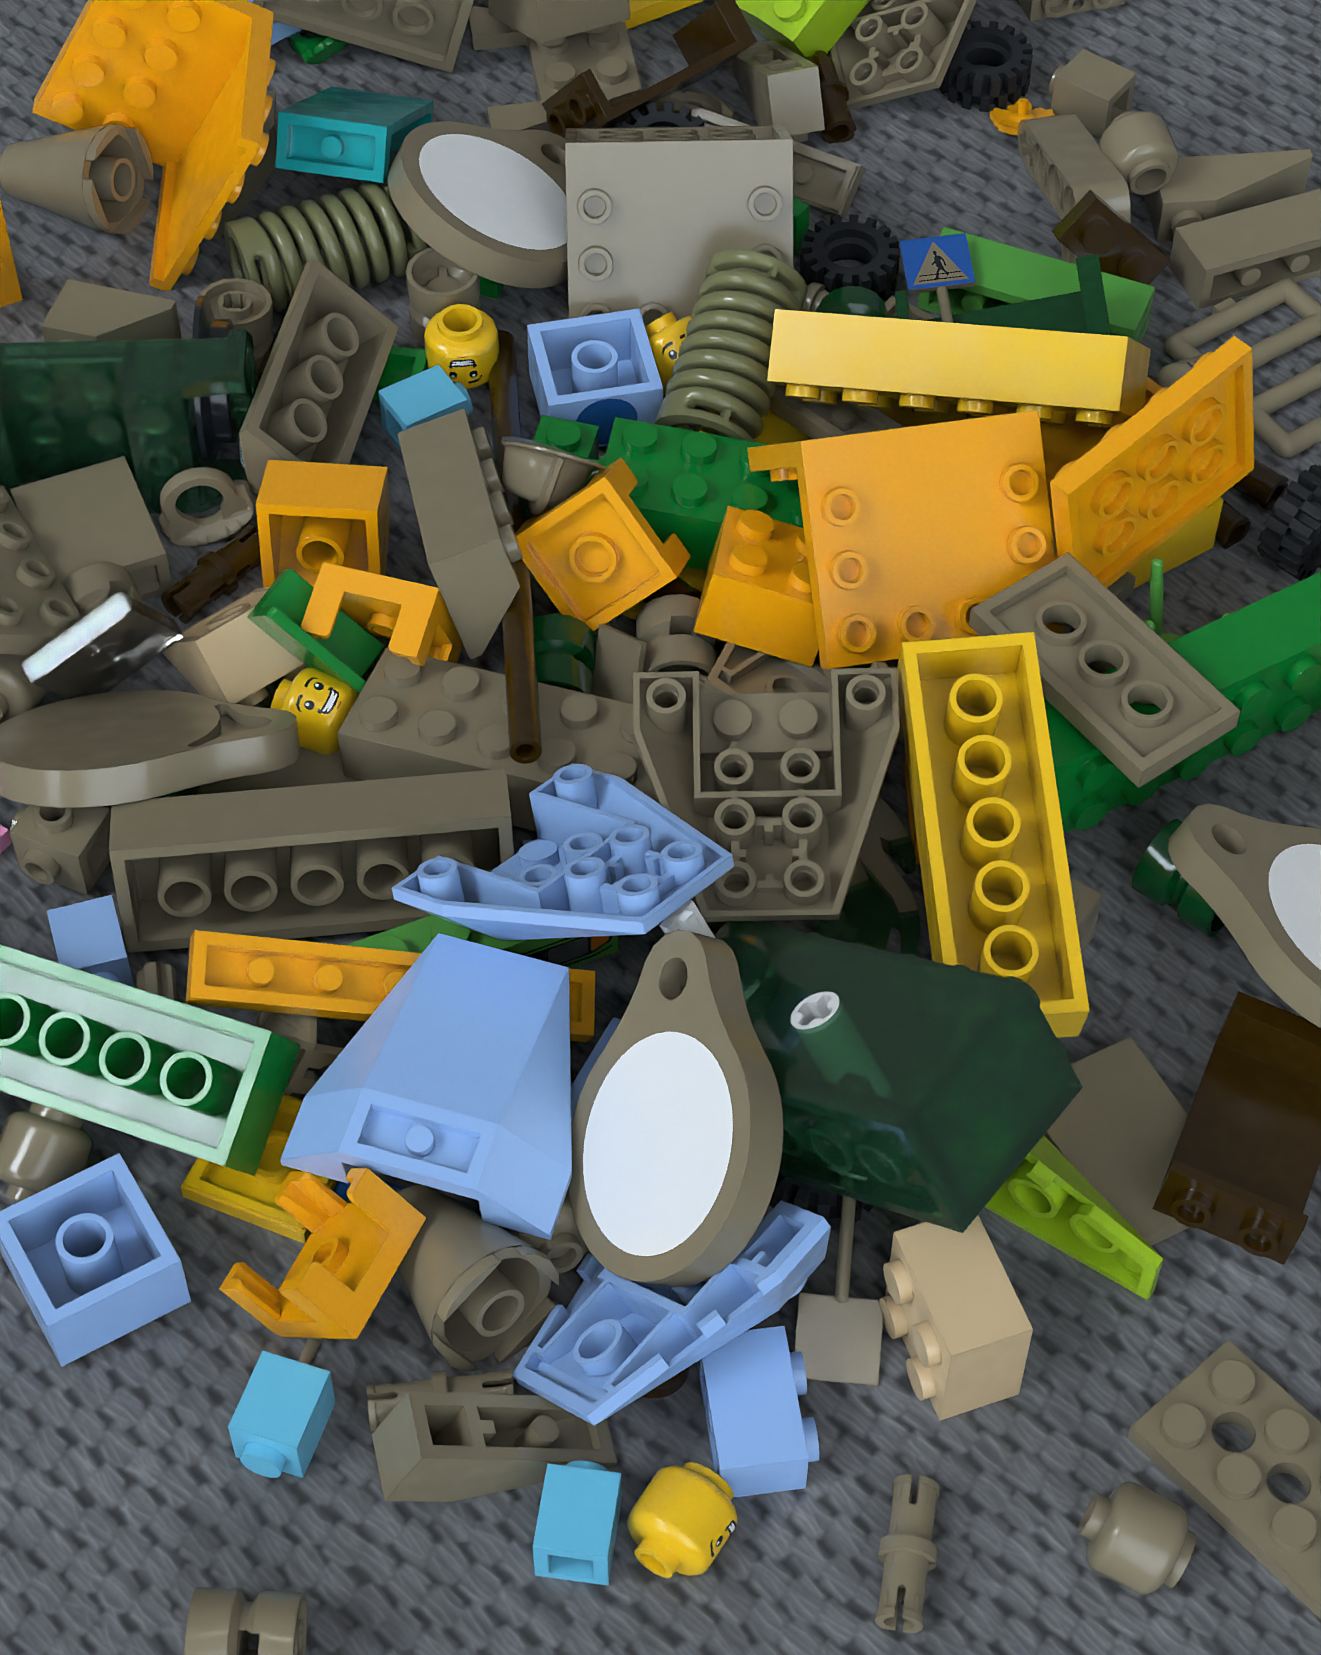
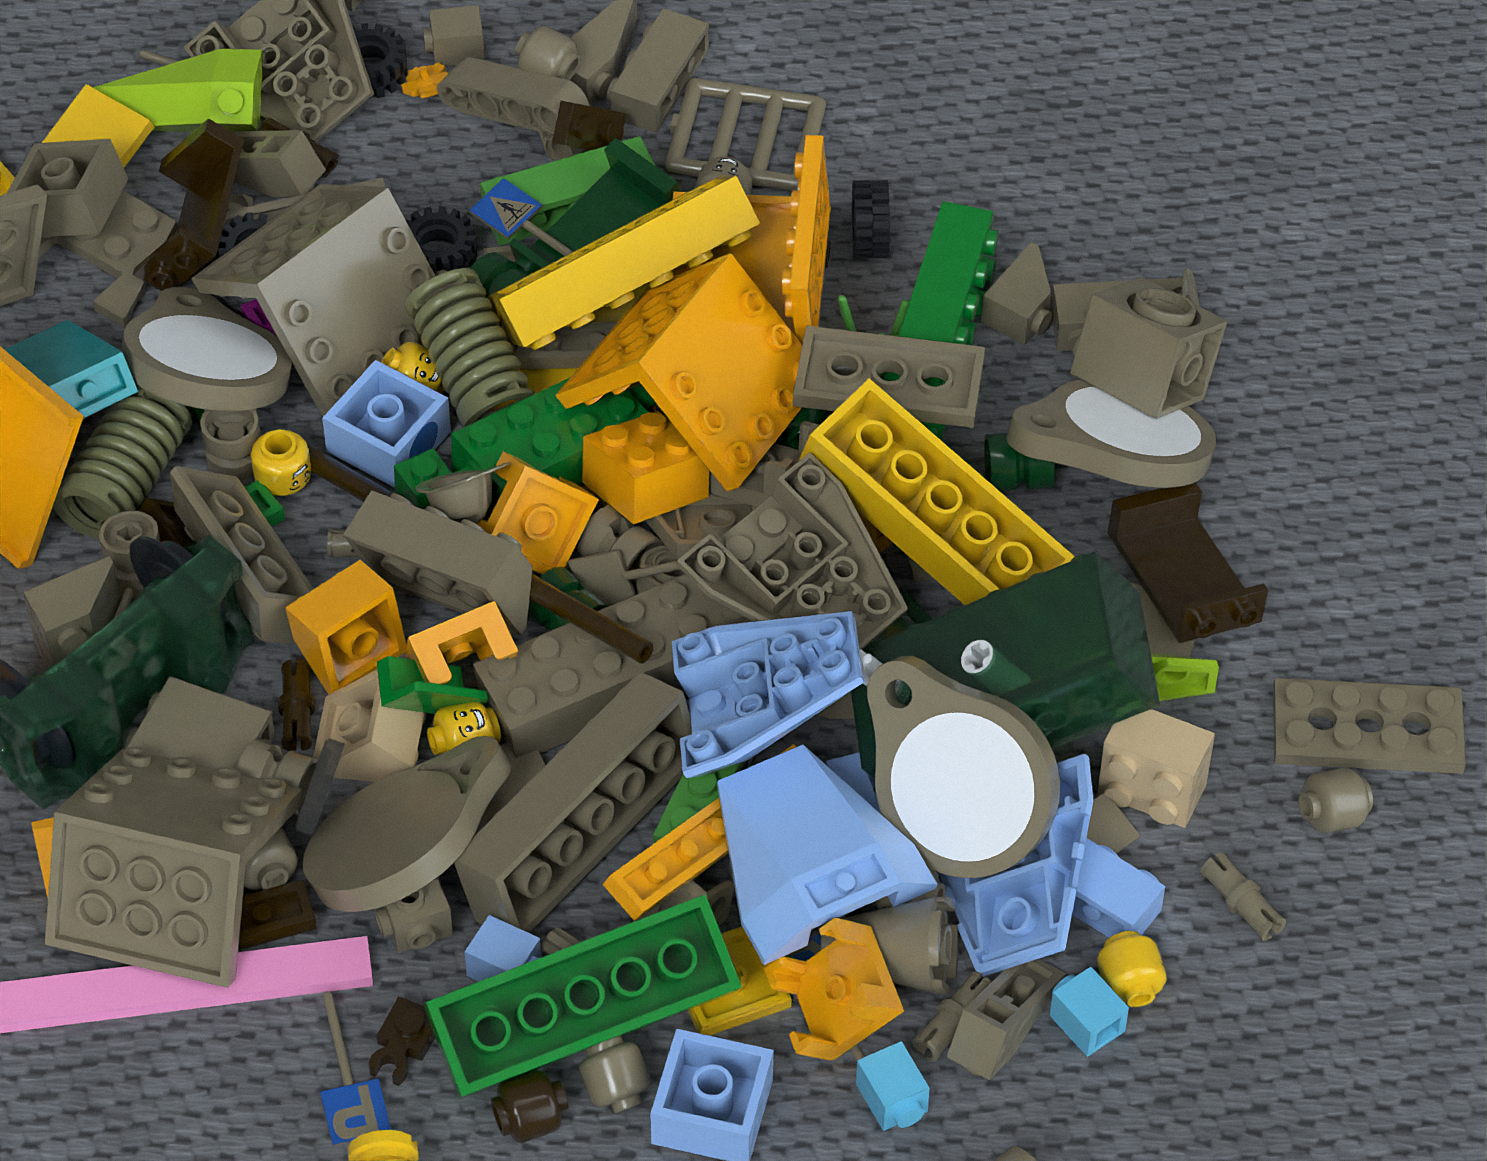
camera: 45 degrees left, 0 degrees up
(186, 530) = (259, 676): dark tan piece -> none
(420, 400) = (304, 518): medium azure brick -> none

